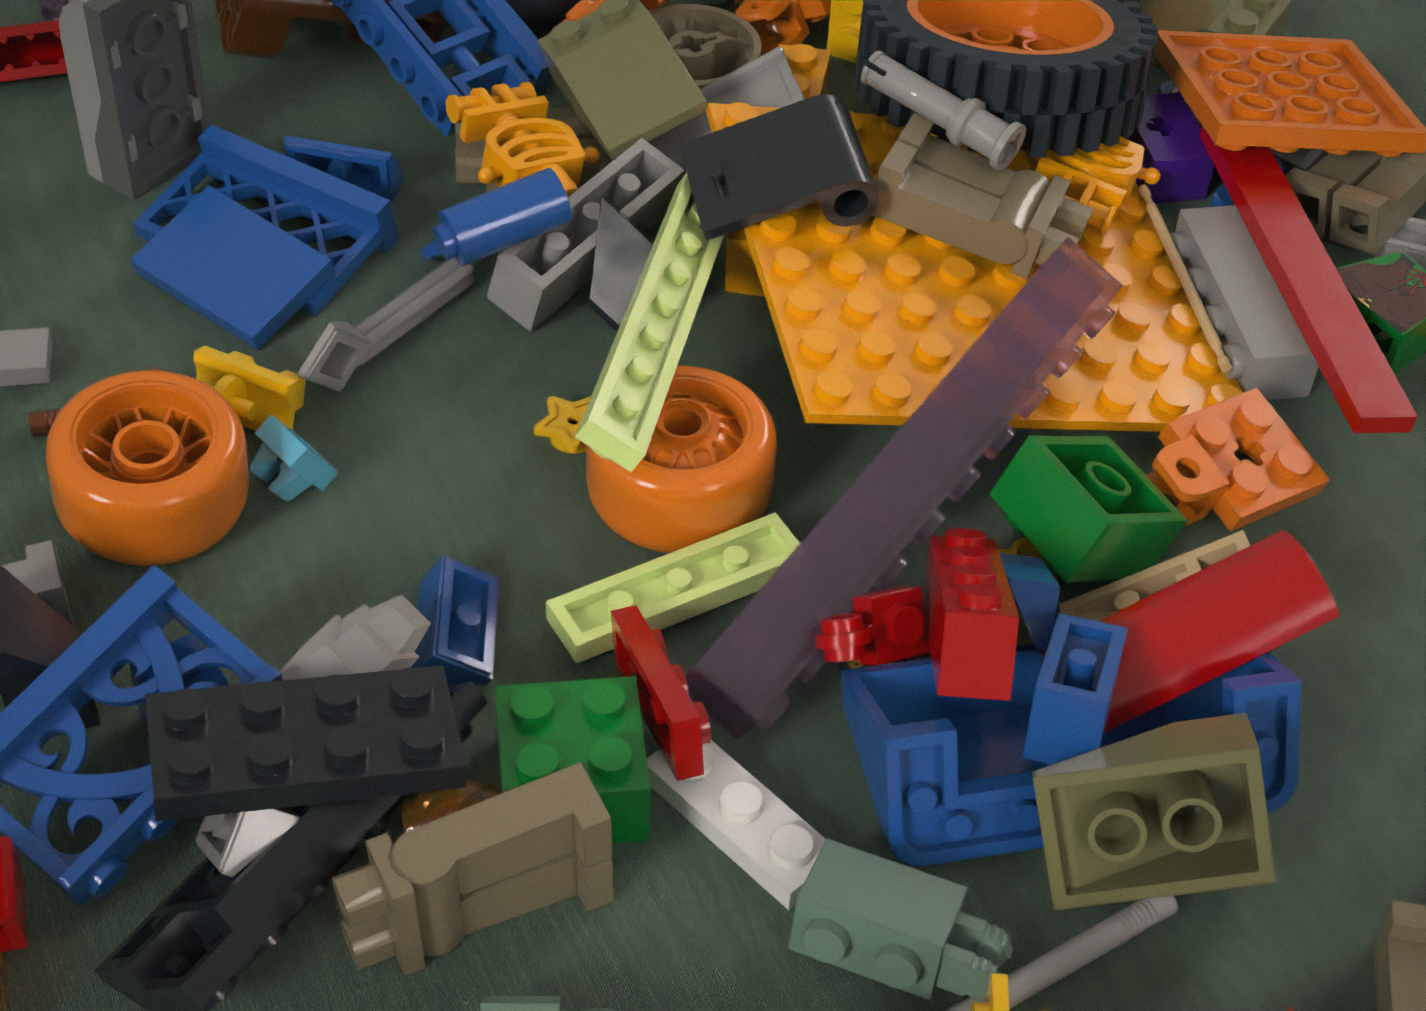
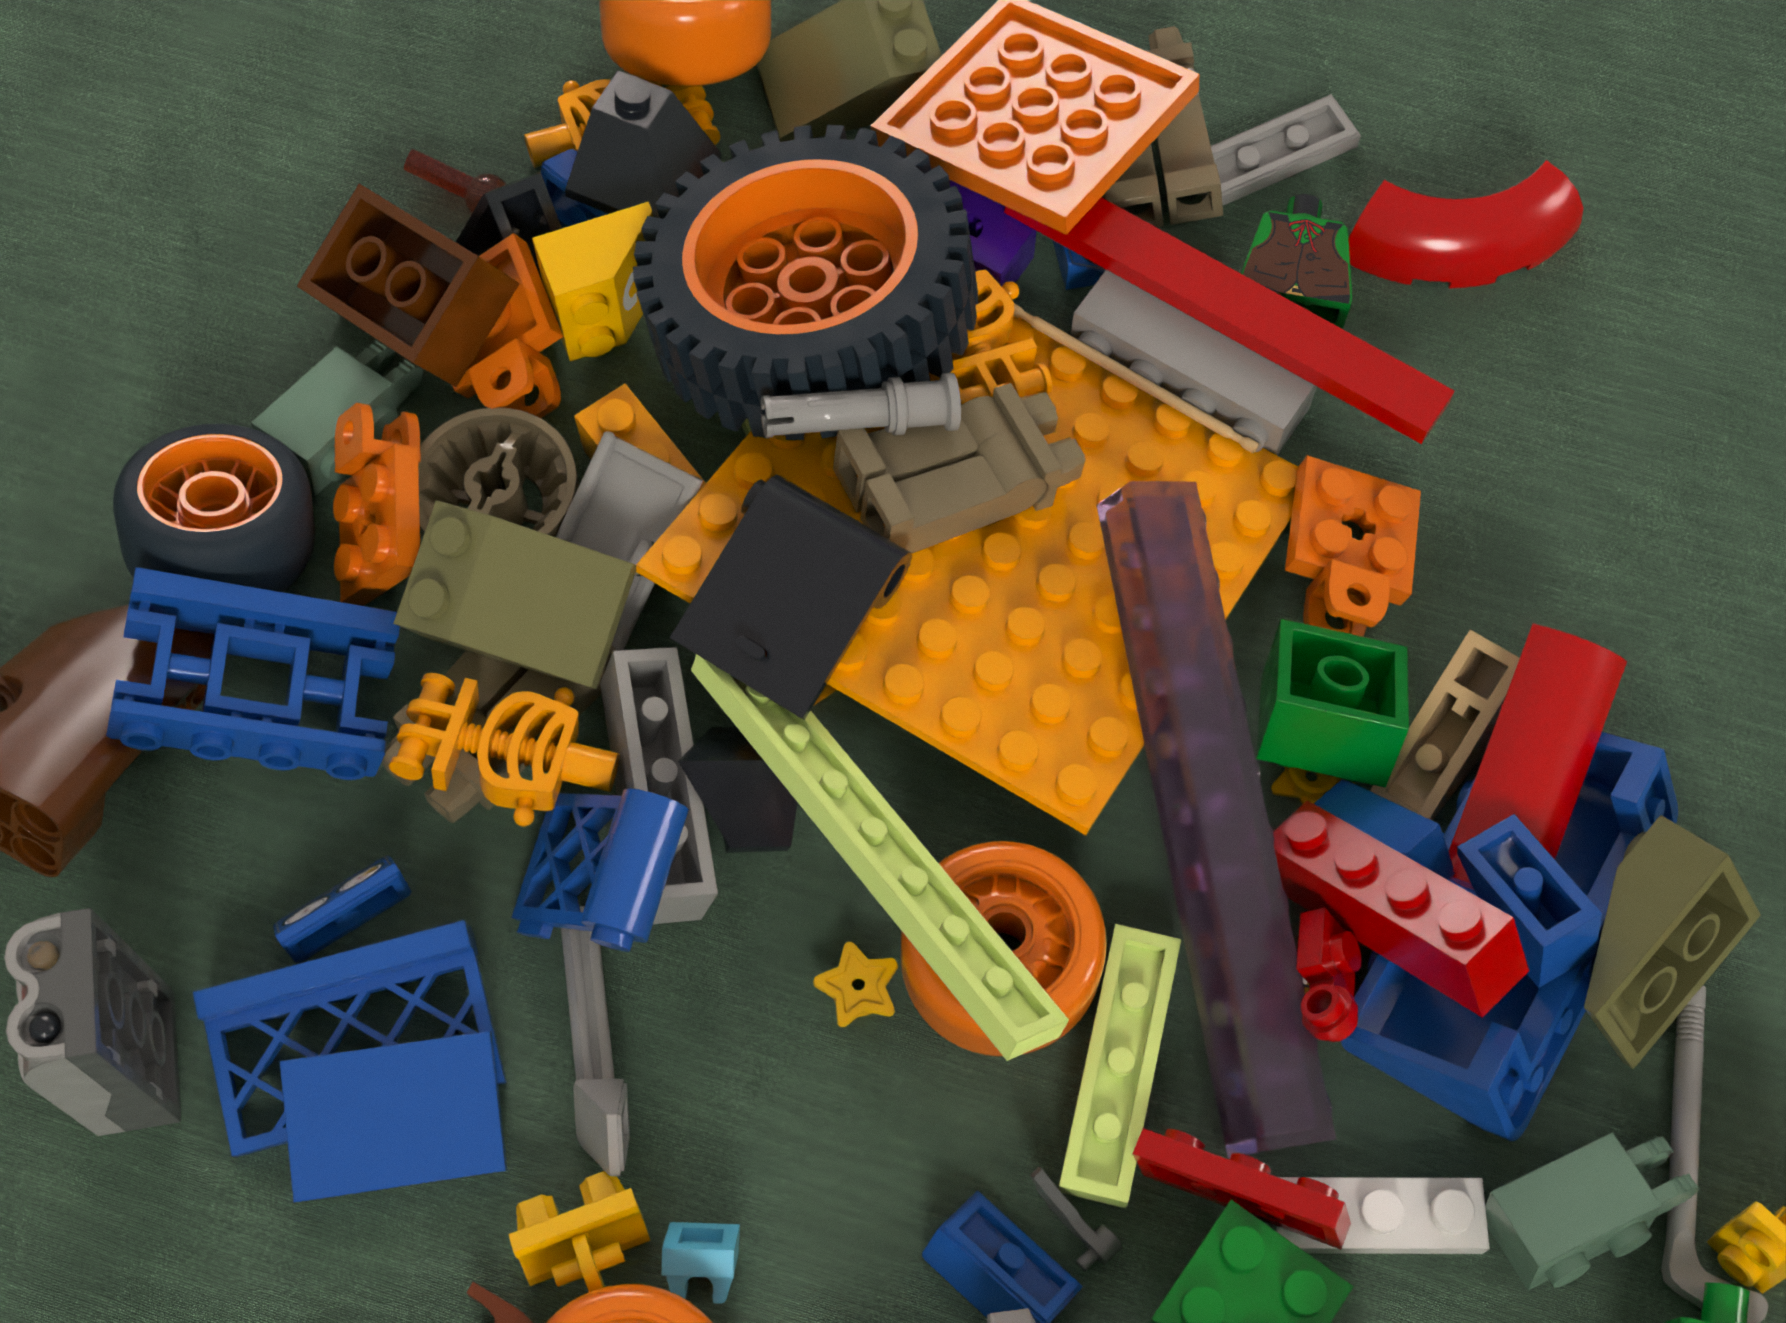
camera: 45 degrees left, 20 degrees up
(534, 664) = (1100, 1243): none -> dark grey piece

